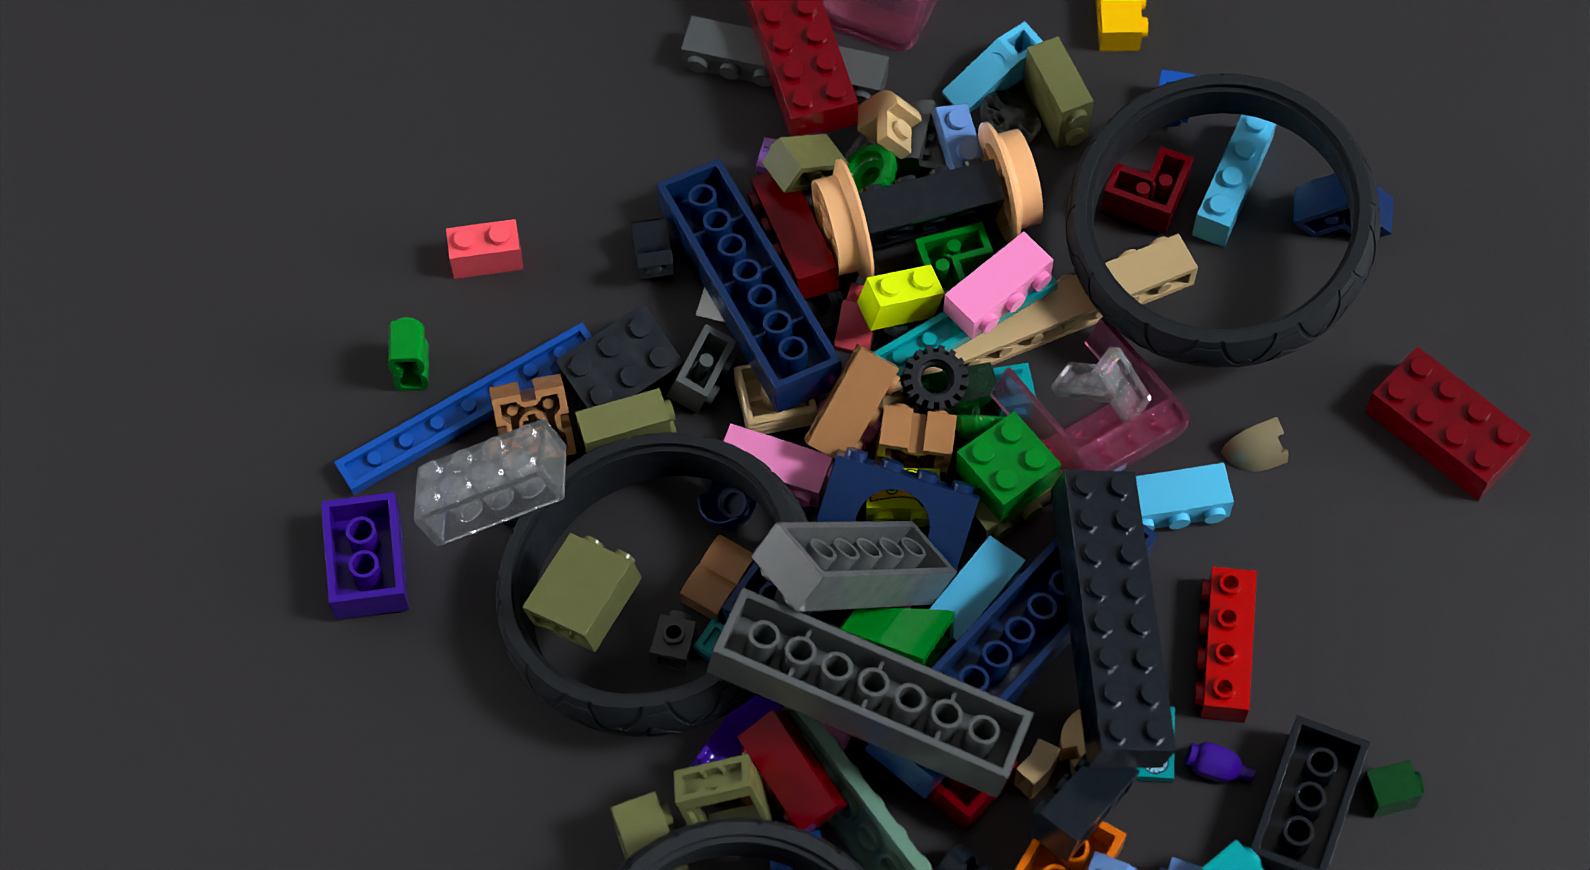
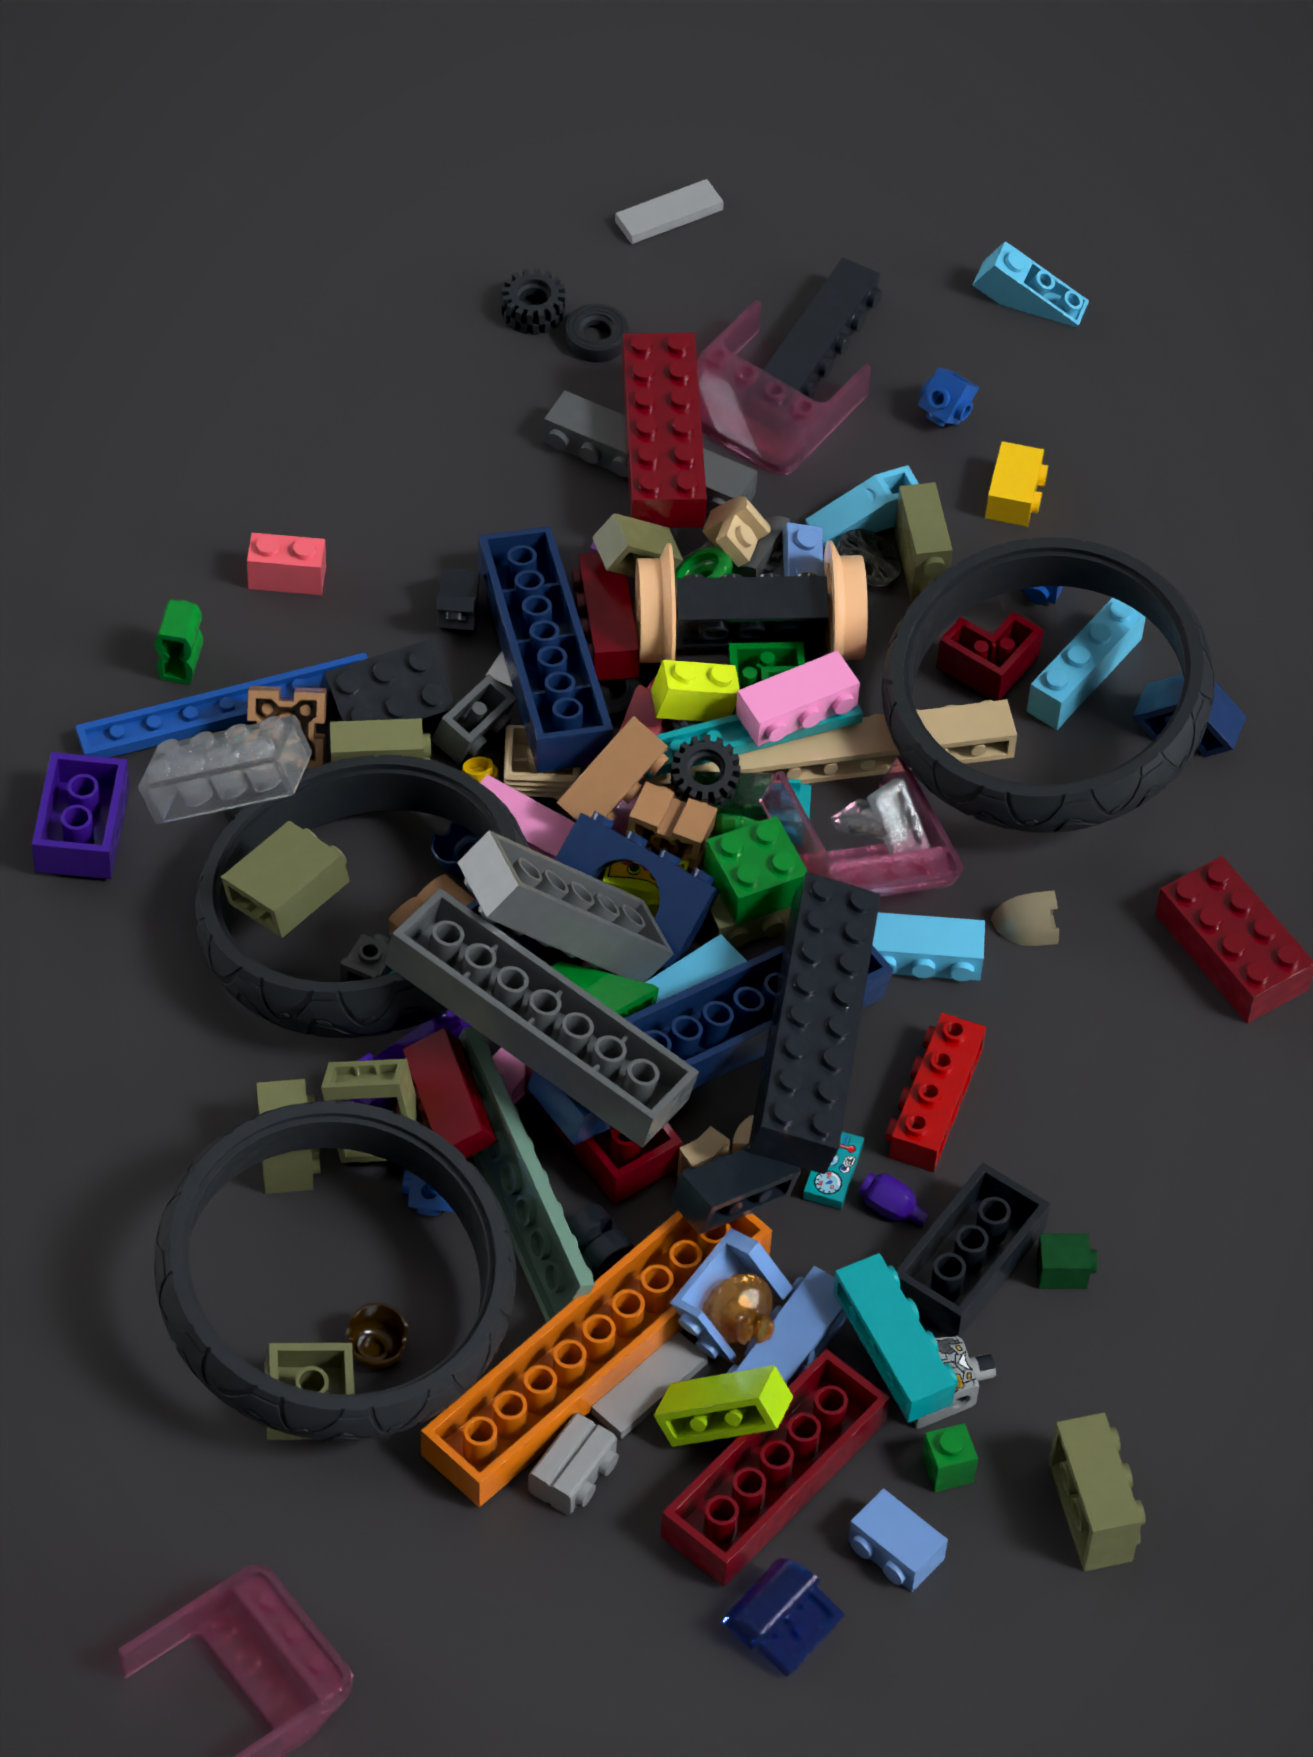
camera: 10 degrees right, 10 degrees down
(718, 419) = (479, 767): none -> yellow plate

